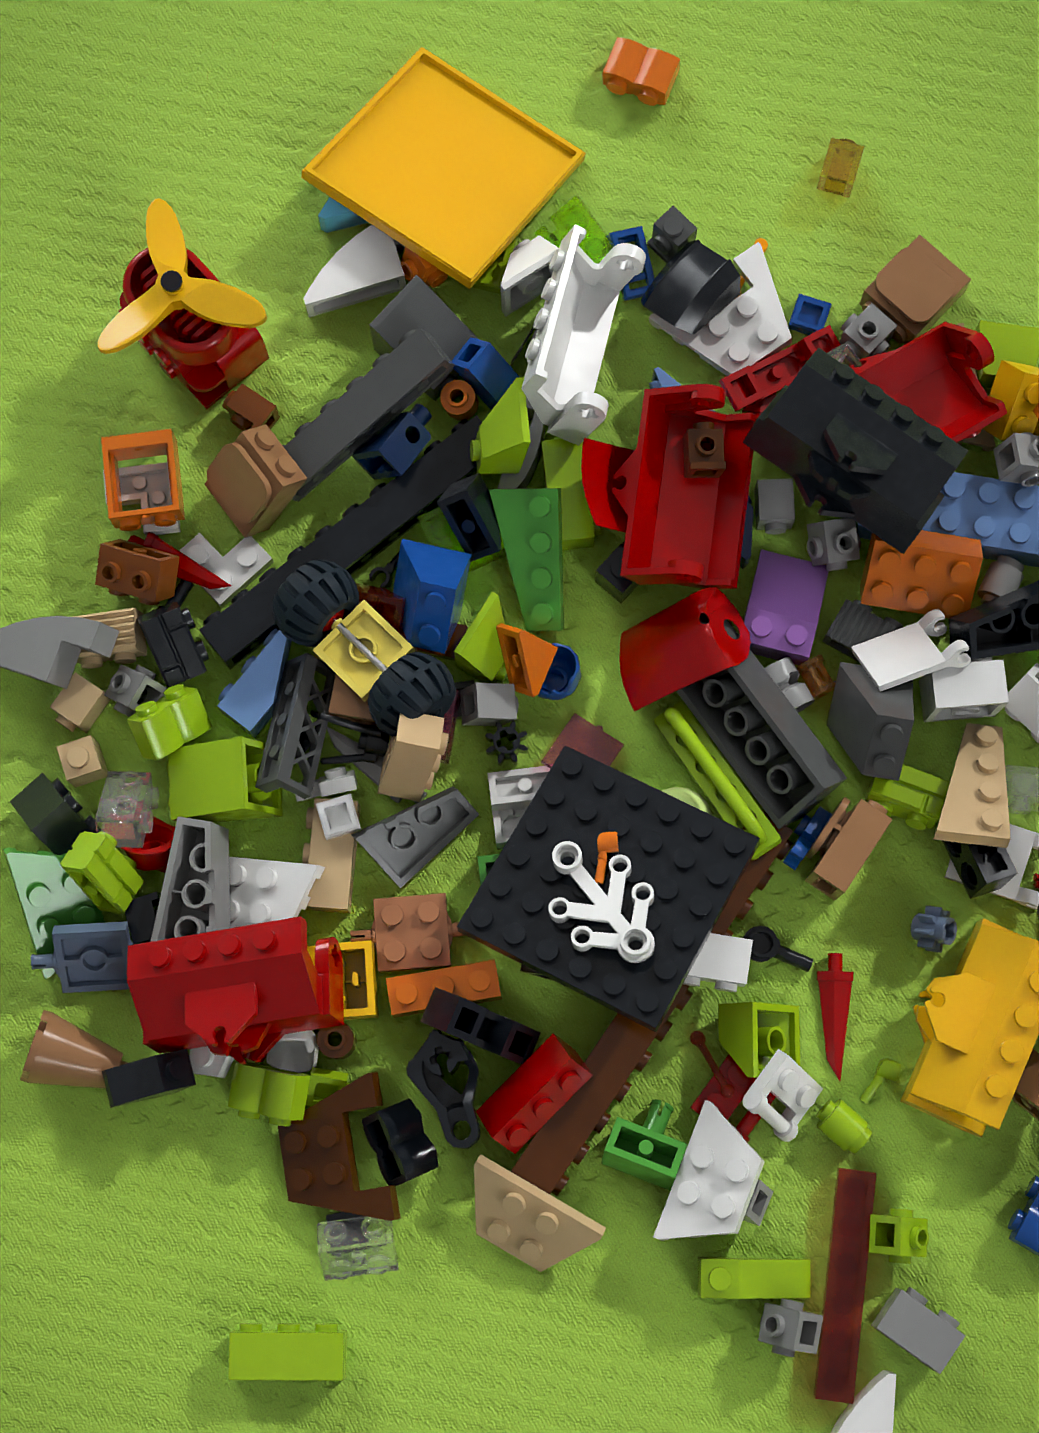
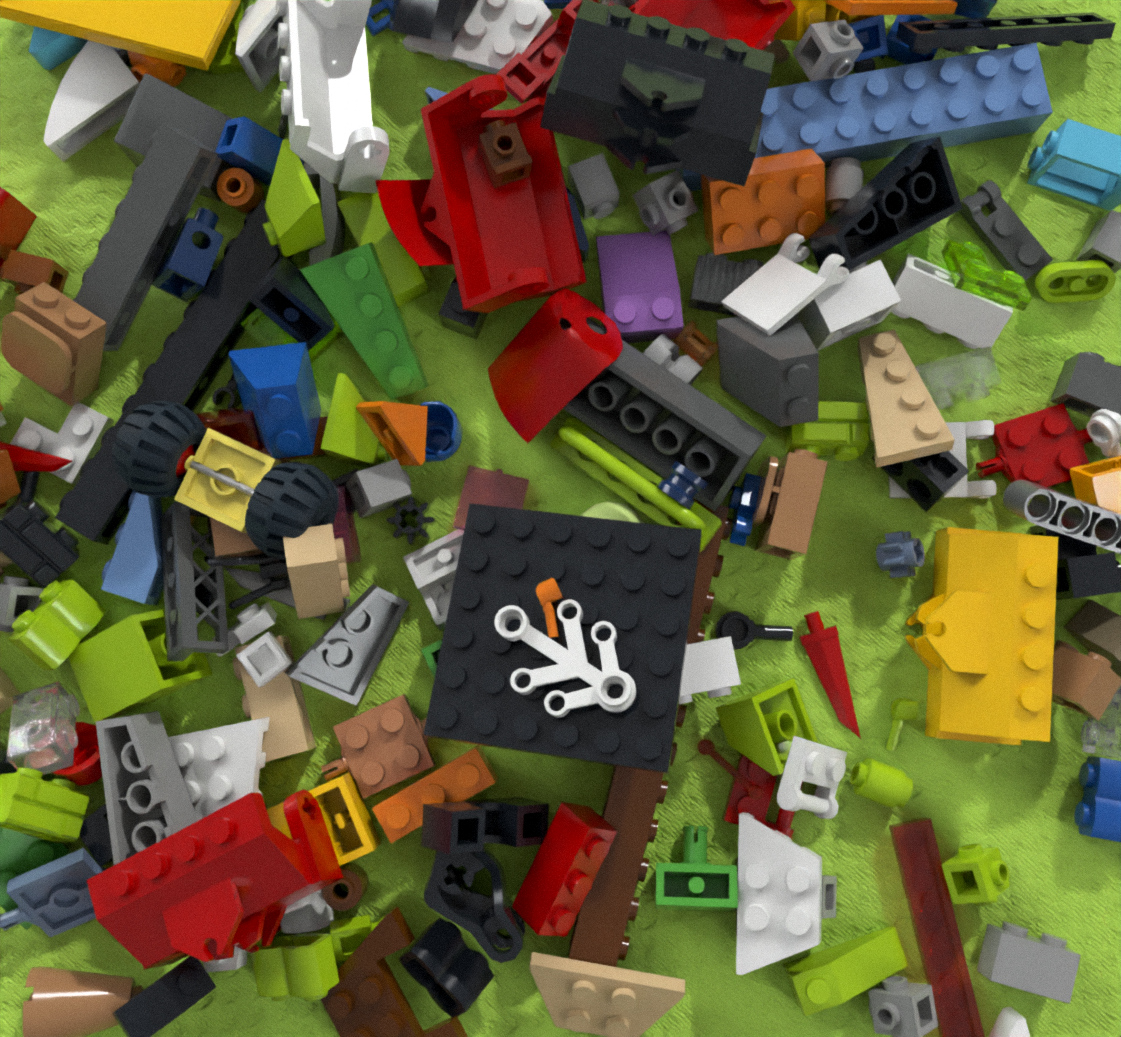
camera: 20 degrees left, 5 degrees up
(757, 794) = (682, 485): none -> dark blue wheel

